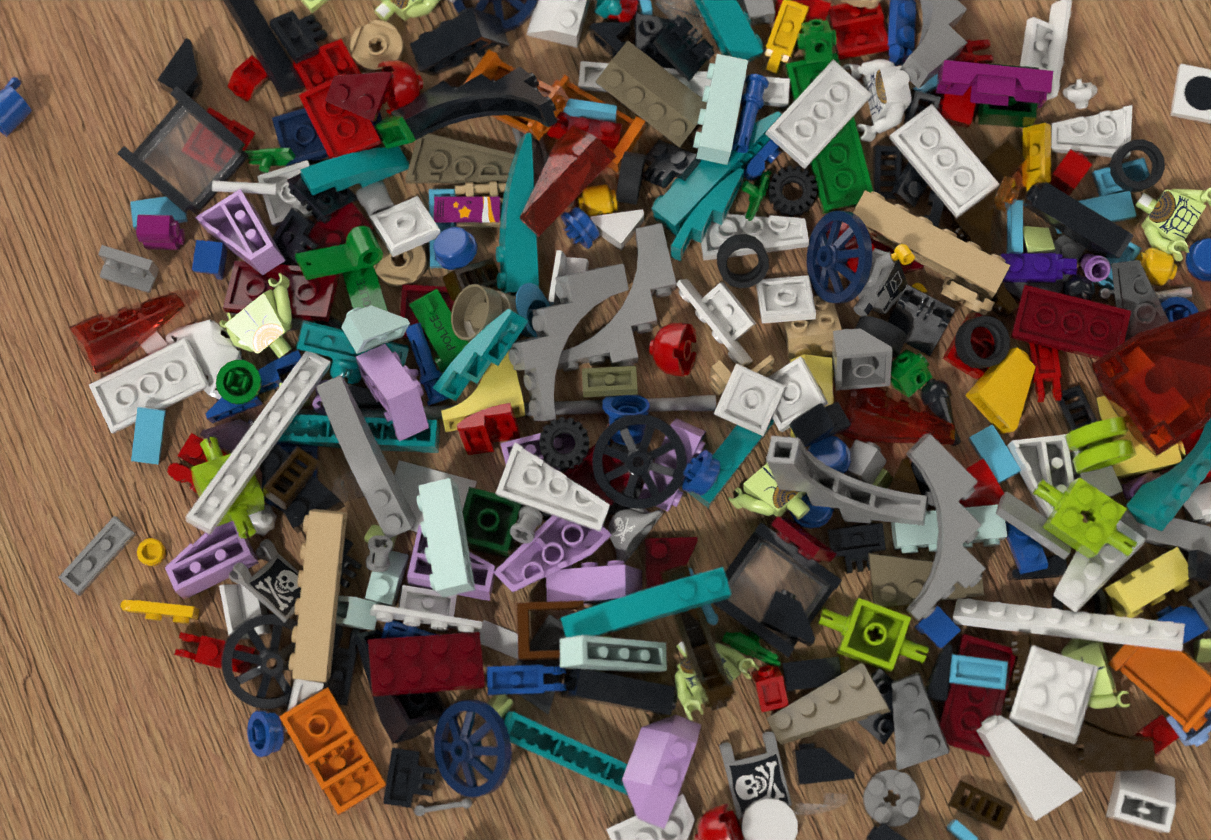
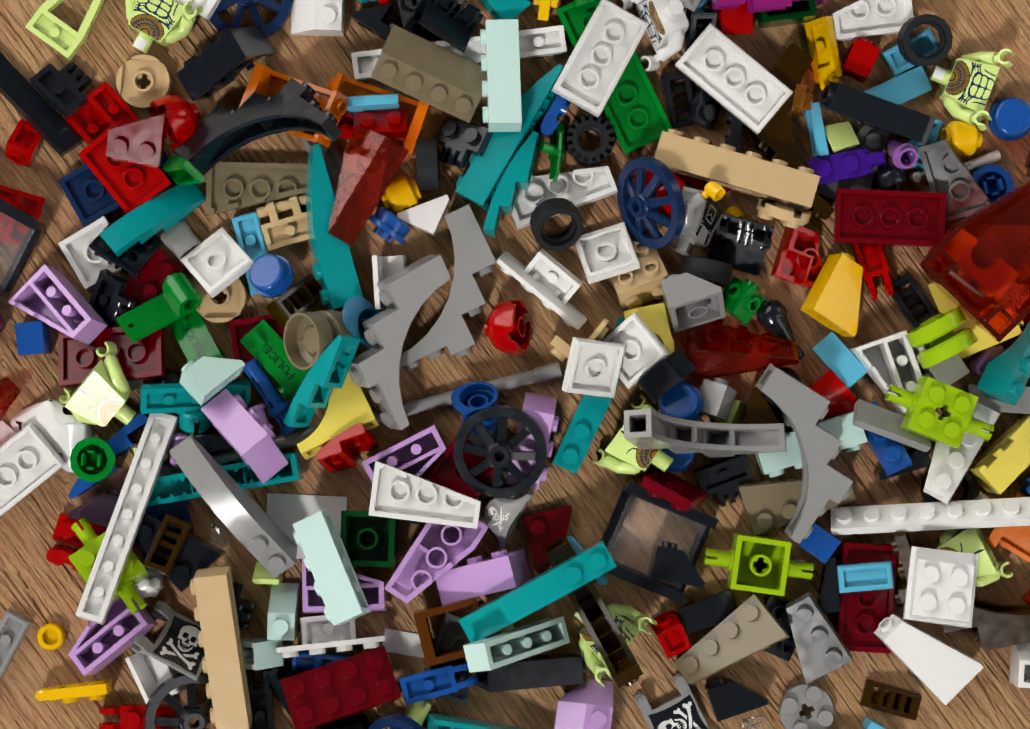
camera: 10 degrees left, 10 degrees up
(148, 435) = (19, 525): medium azure tile -> none
(255, 188) = (49, 259): white piece -> none
(270, 157) = (66, 221): green piece -> none
(379, 553) = (266, 591): light grey bush -> none
(467, 209) = (273, 231): magenta sticker -> none
(528, 521) = (405, 537): light grey bush -> none
(559, 427) = (411, 462): black tyre -> none
(609, 381) = (453, 375): olive panel -> none
(701, 473) = (562, 452): blue piece -> none
(750, 646) = (643, 599): green piece -> none
(751, 103) = (530, 61): blue pin -> none
(1000, 337) = (825, 251): black tyre -> none

